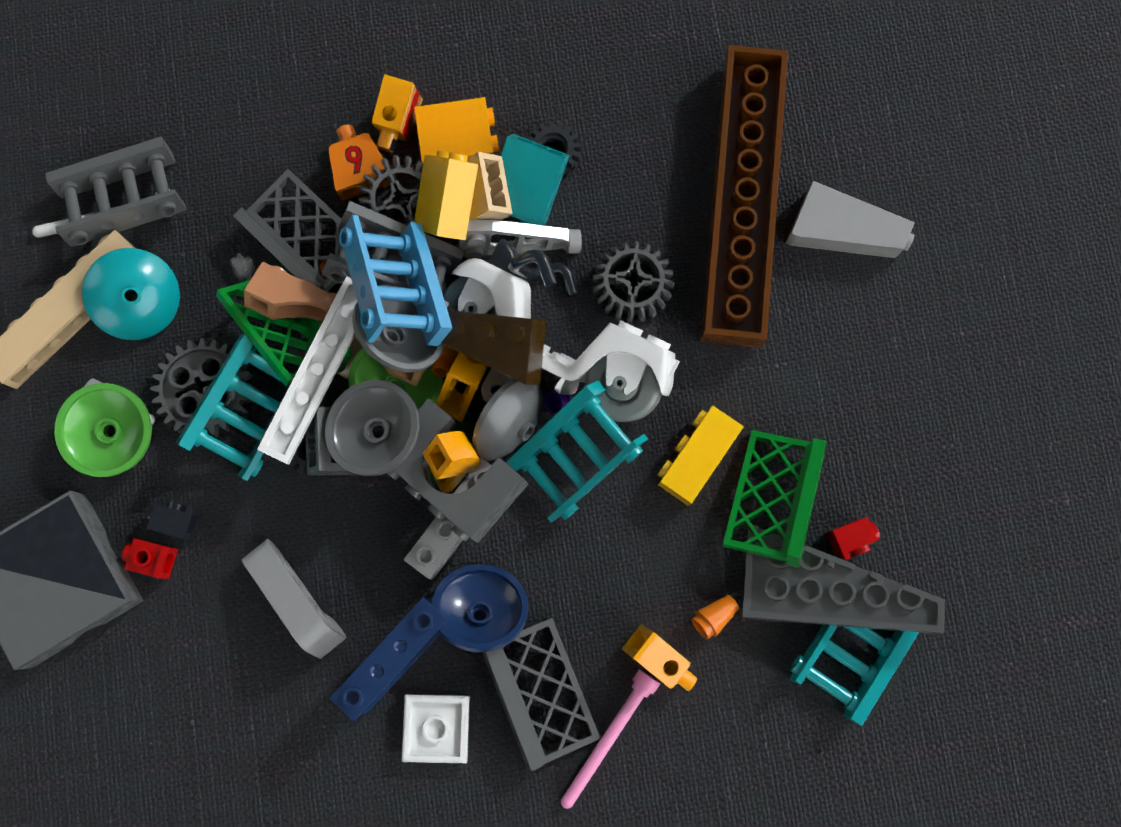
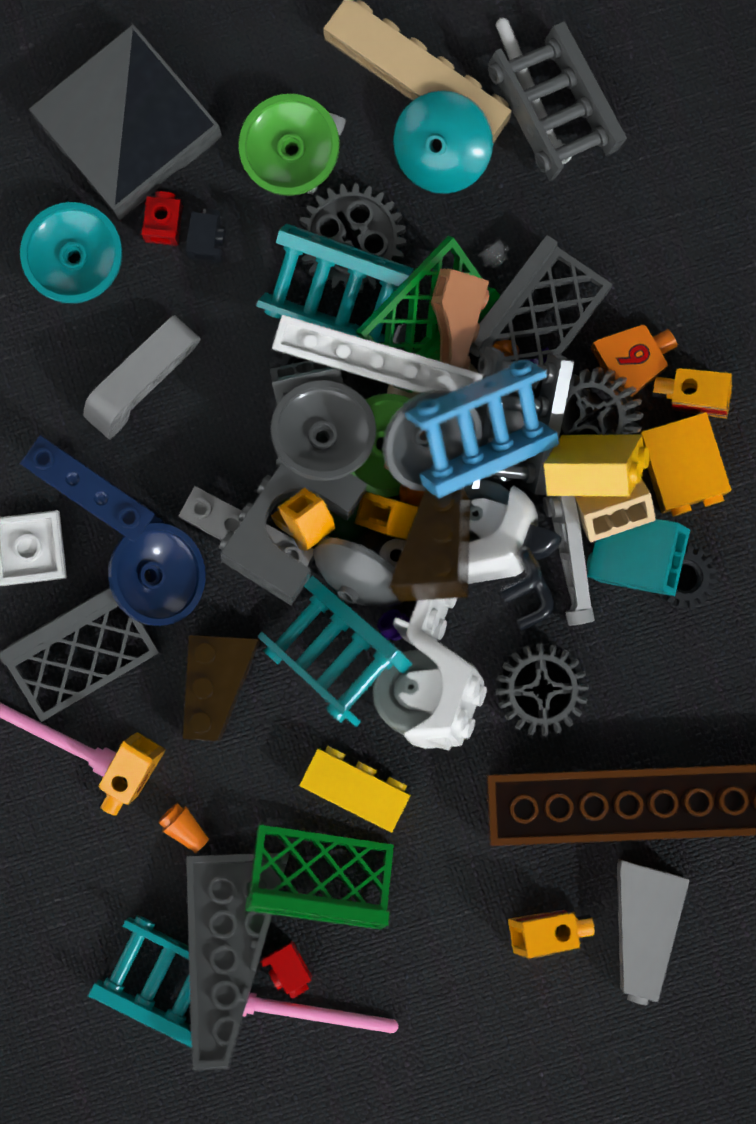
camera: 90 degrees right, 5 degrees up
(142, 653) = (59, 234): none -> teal dish
(588, 569) = (213, 683): none -> dark brown wedge
(845, 307) = (536, 936): none -> light orange torso
(895, 513) = (319, 1014): none -> bright pink piece

